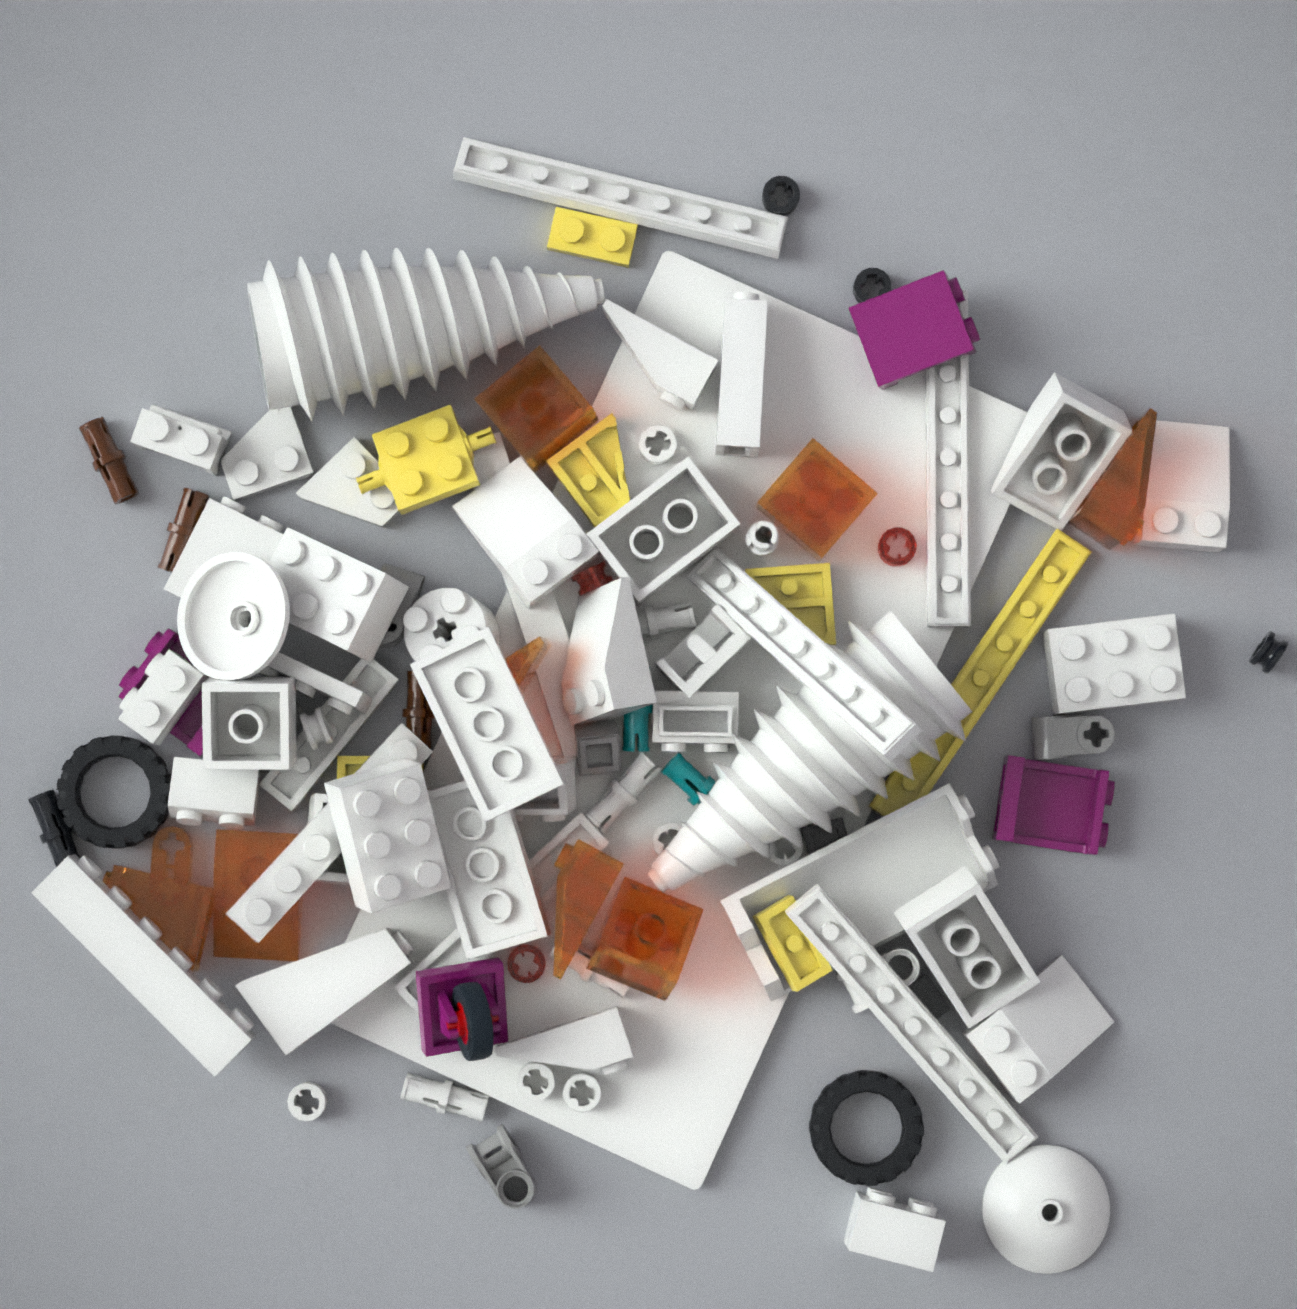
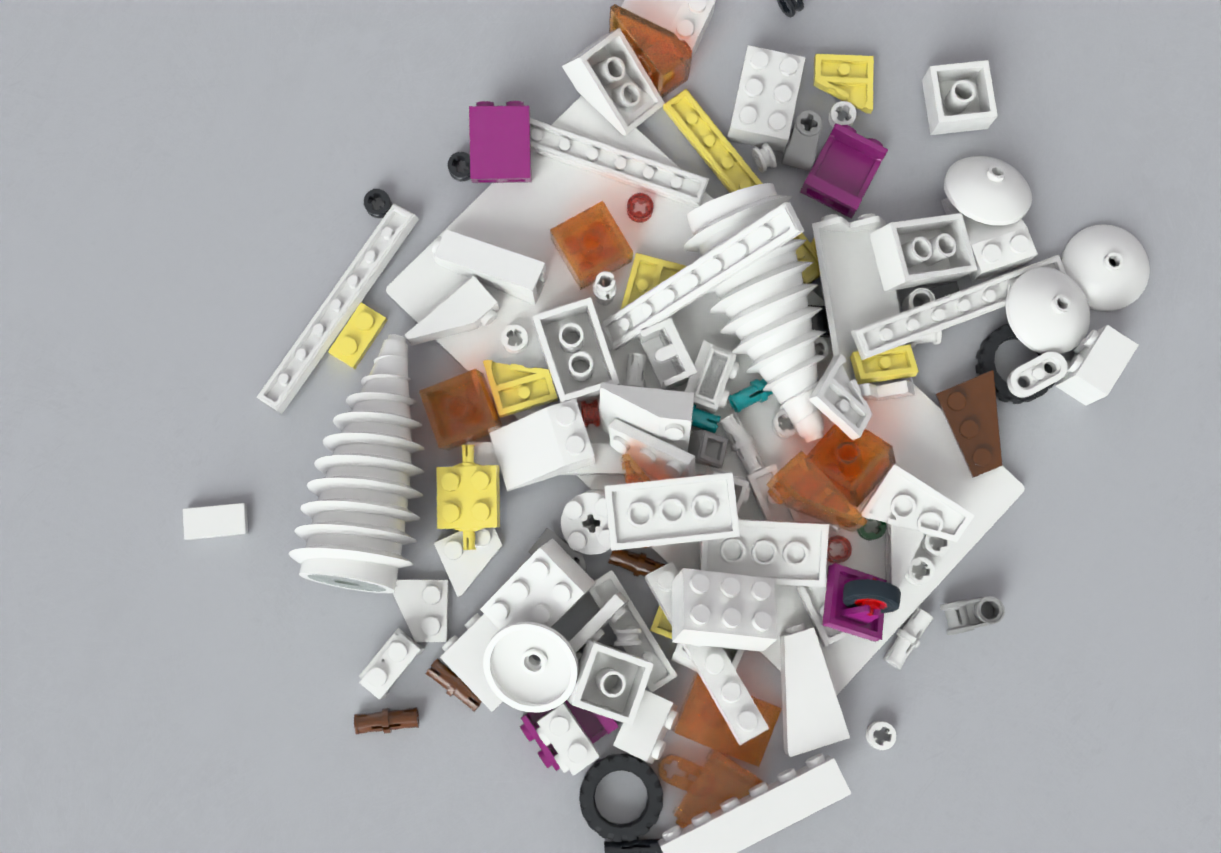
camera: 75 degrees left, 5 degrees down
(285, 147) = (215, 521): none -> white tile
(559, 1001) = (871, 535): none -> dark green bush
(561, 676) = (651, 453): none -> white wing
(613, 1042) = (916, 506): none -> white wing
(715, 897) = (841, 399): none -> white wing
(760, 1090) = (974, 422): none -> reddish brown wing
(852, 1153) = (1035, 374): none -> white plate
(935, 1122) = (1038, 318): none -> white dish
(1030, 691) = (764, 158): none -> white bush
(1073, 1010) = (988, 190): none -> white dish
(1136, 790) = (842, 106): none -> white bush
(1186, 766) = (846, 78): none -> light yellow wing
(1210, 929) = (959, 97): none -> white brick

